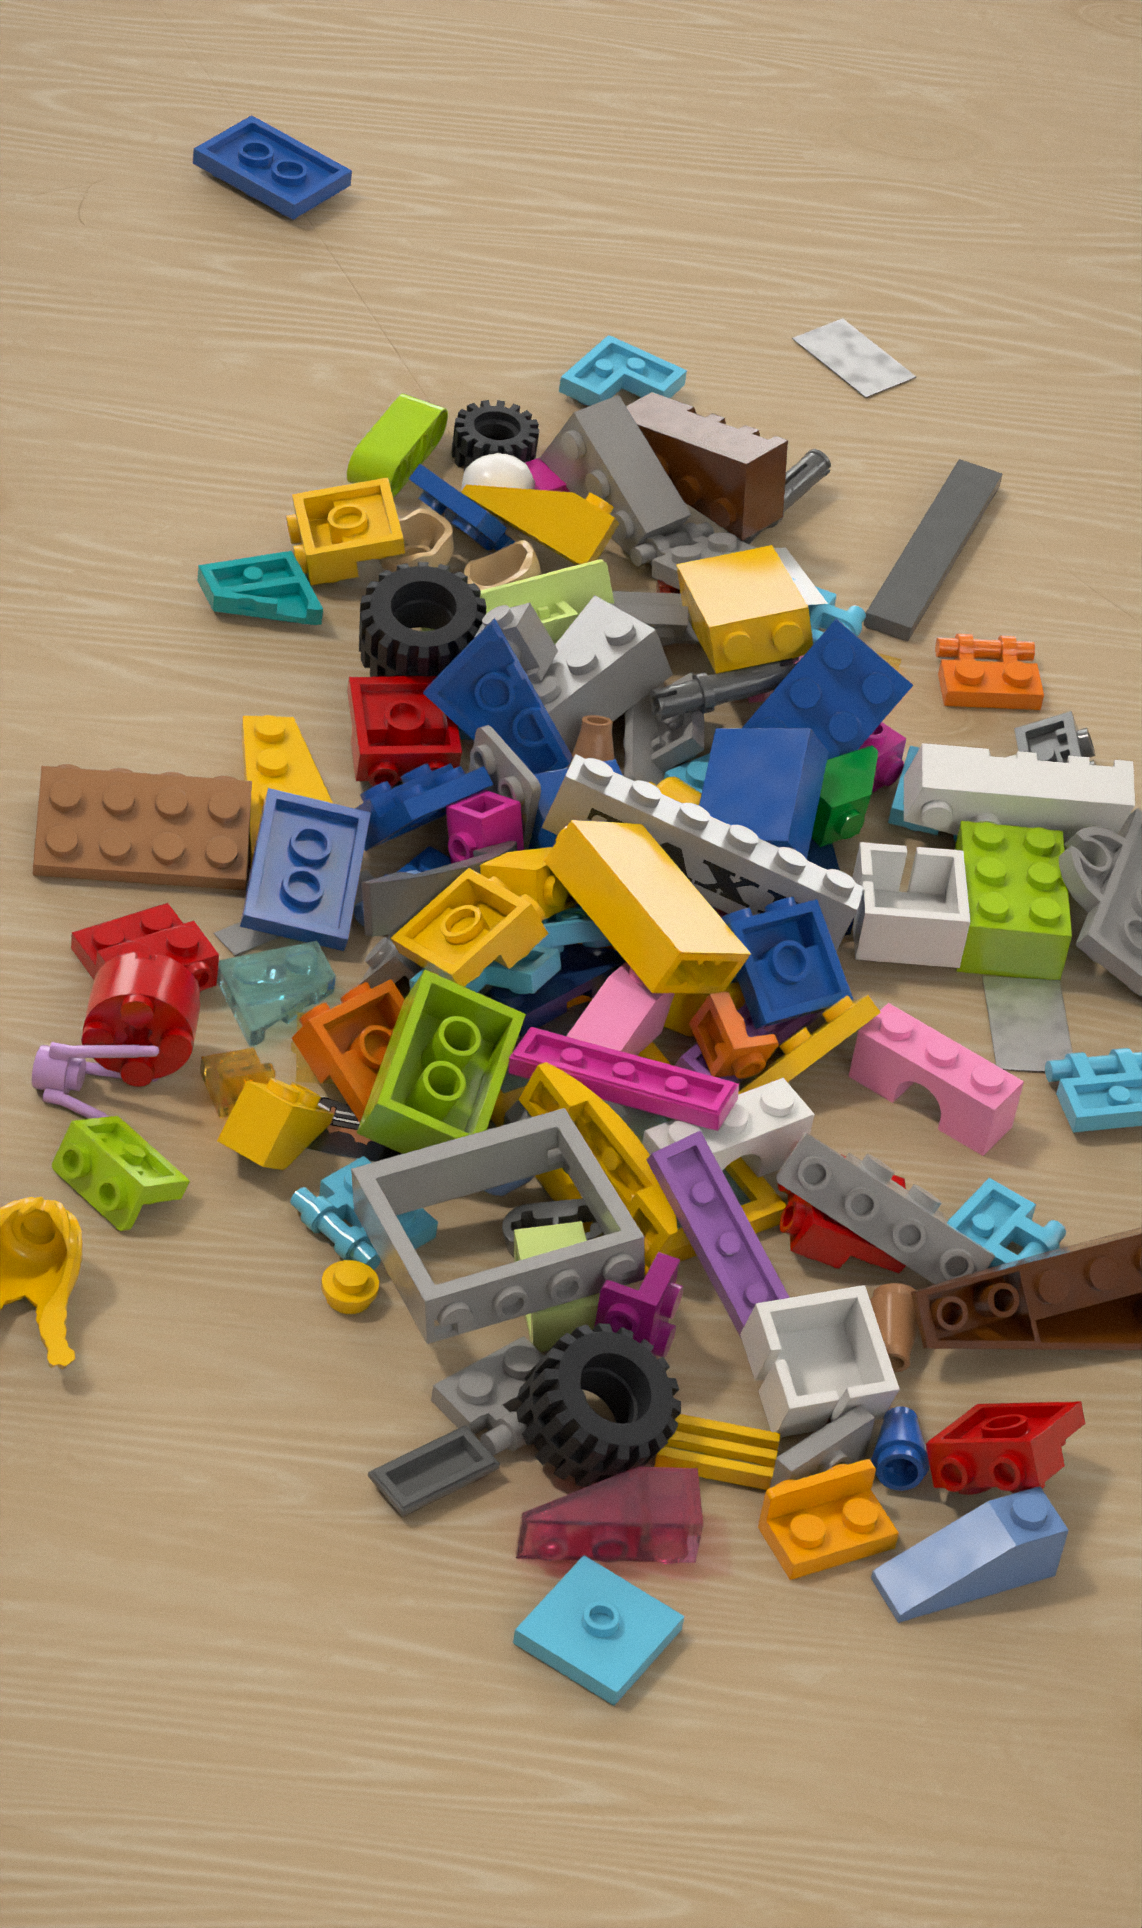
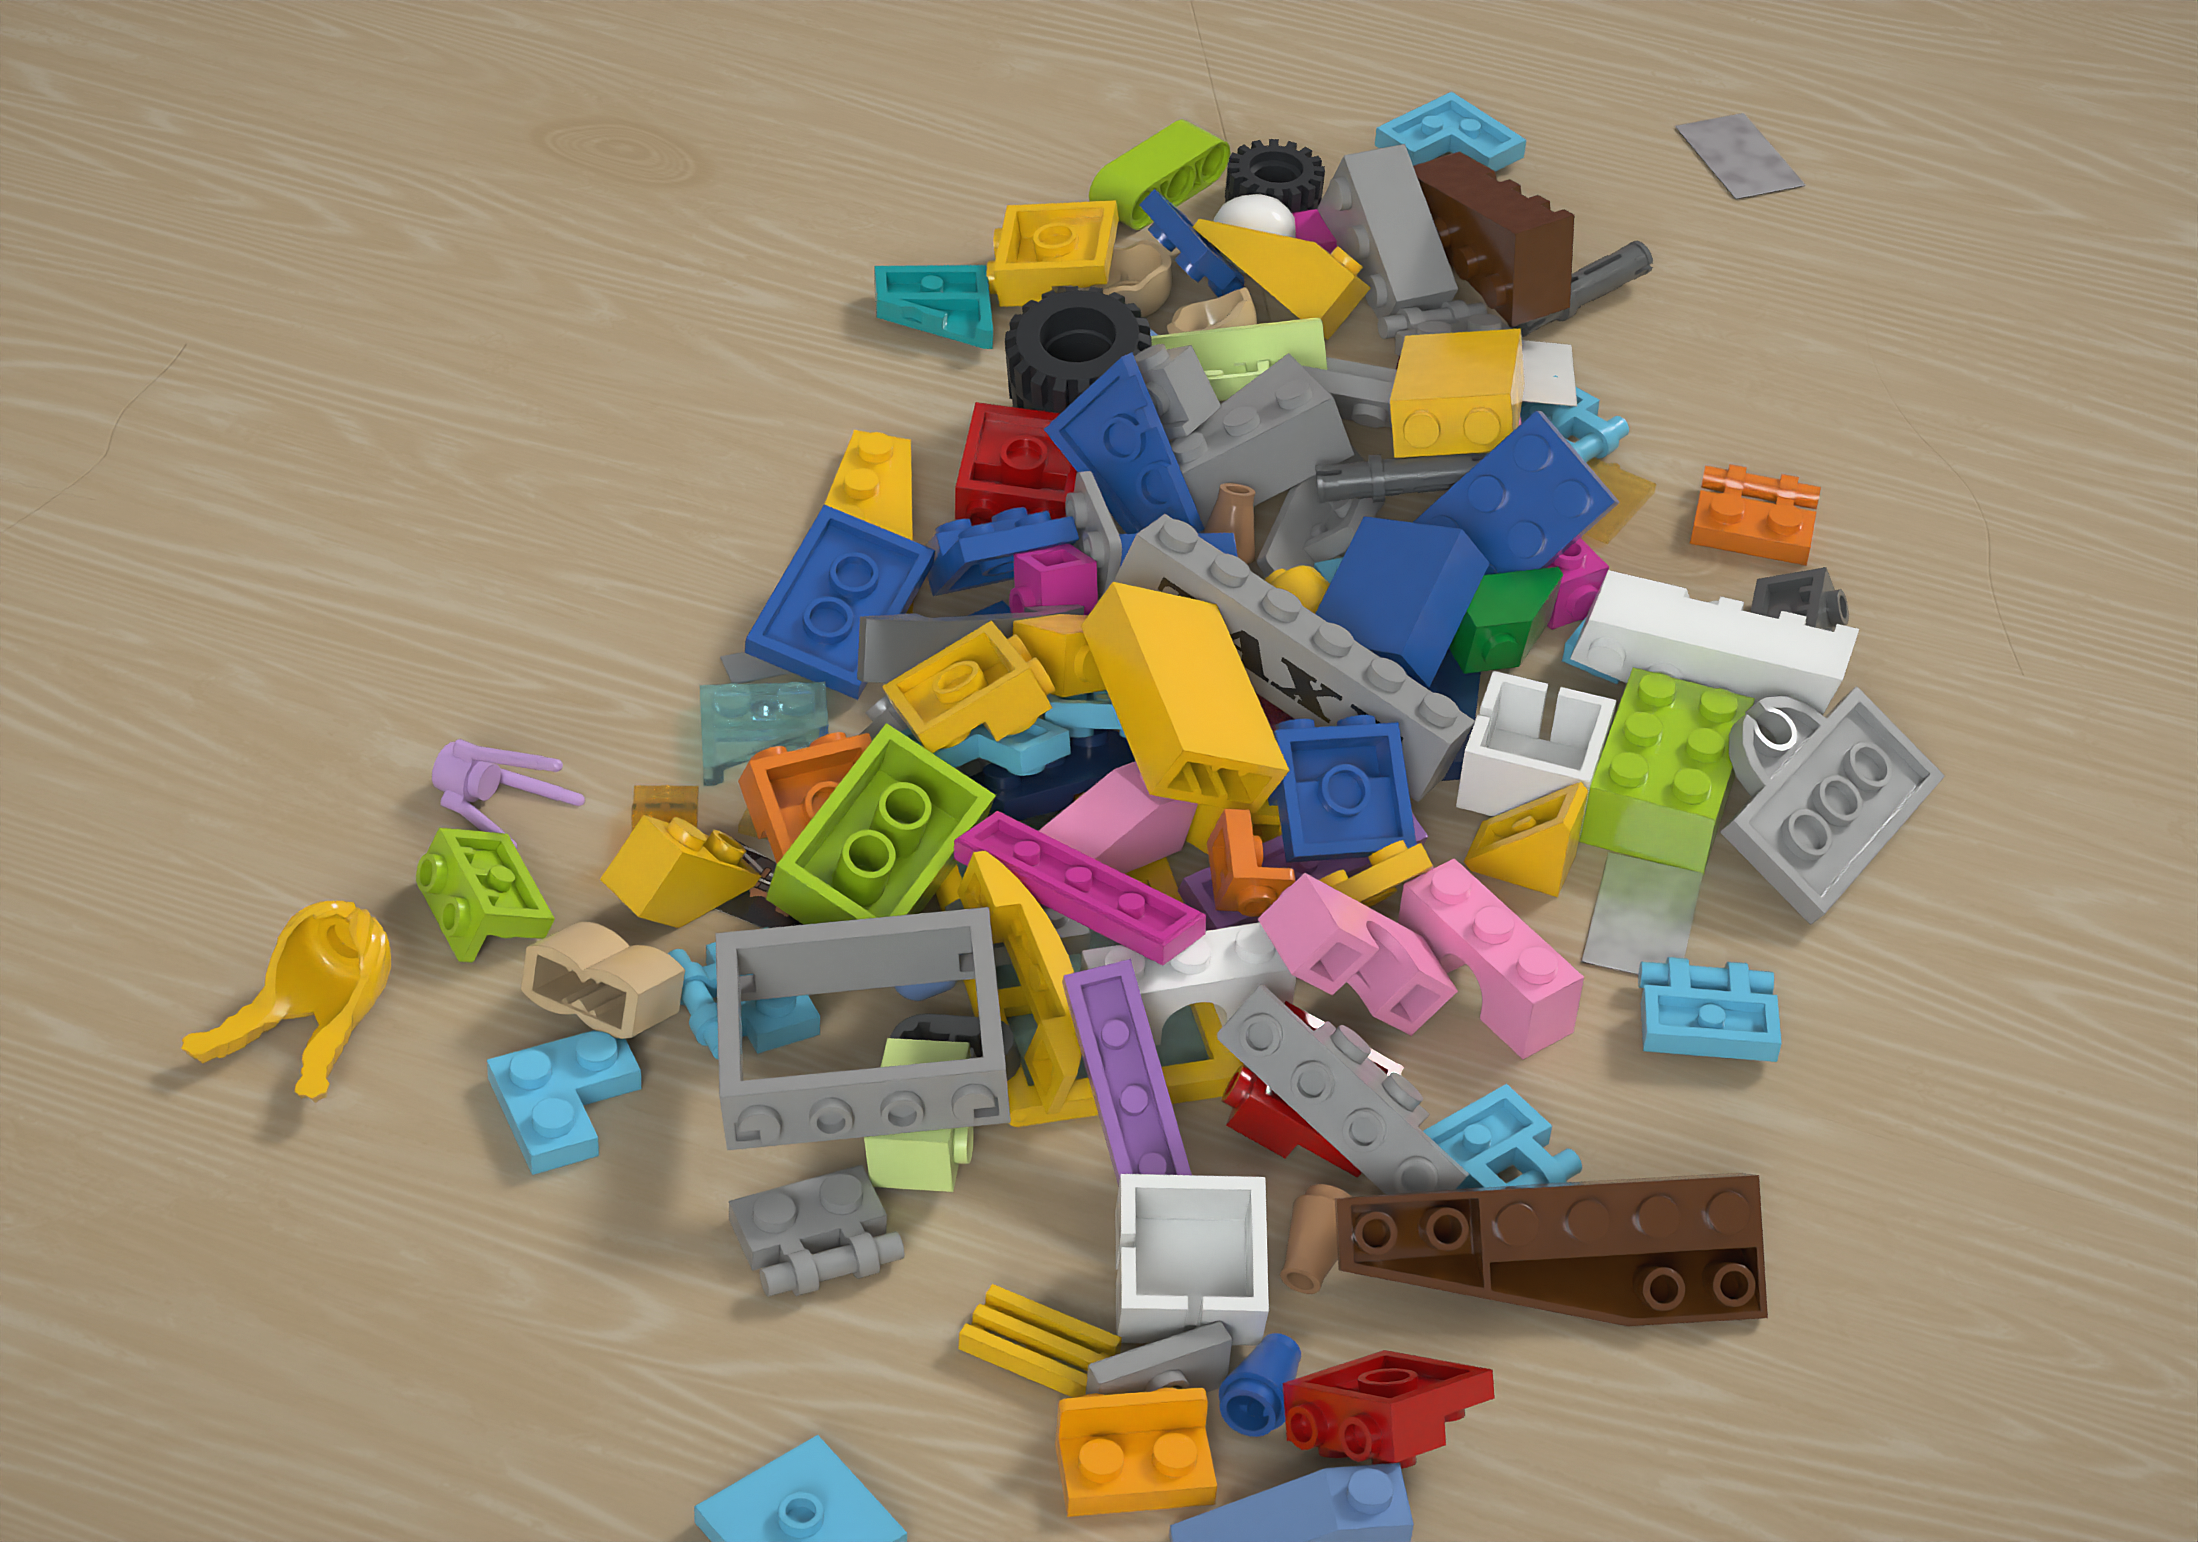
camera: 20 degrees right, 0 degrees up
(142, 827) = (680, 528): medium nougat bracket -> none
(143, 1006) = (575, 715): red brick -> none
(147, 934) = (626, 671): red plate -> none
(246, 1322) = (546, 1092): none -> medium azure plate
(268, 1227) = (602, 979): none -> tan brick
(349, 1286) = (686, 1070): yellow plate -> none
(433, 1471) = (687, 1301): dark grey tile -> none
(621, 1375) = (933, 1221): black tyre -> none
(628, 1517) = (882, 1400): clear pink slope -> none
(646, 1309) = (991, 1175): magenta bracket -> none
(850, 1094) = (1339, 940): none -> bright pink arch
(929, 977) = (1532, 842): none -> yellow slope
(932, 550) = (1743, 371): dark grey tile -> none

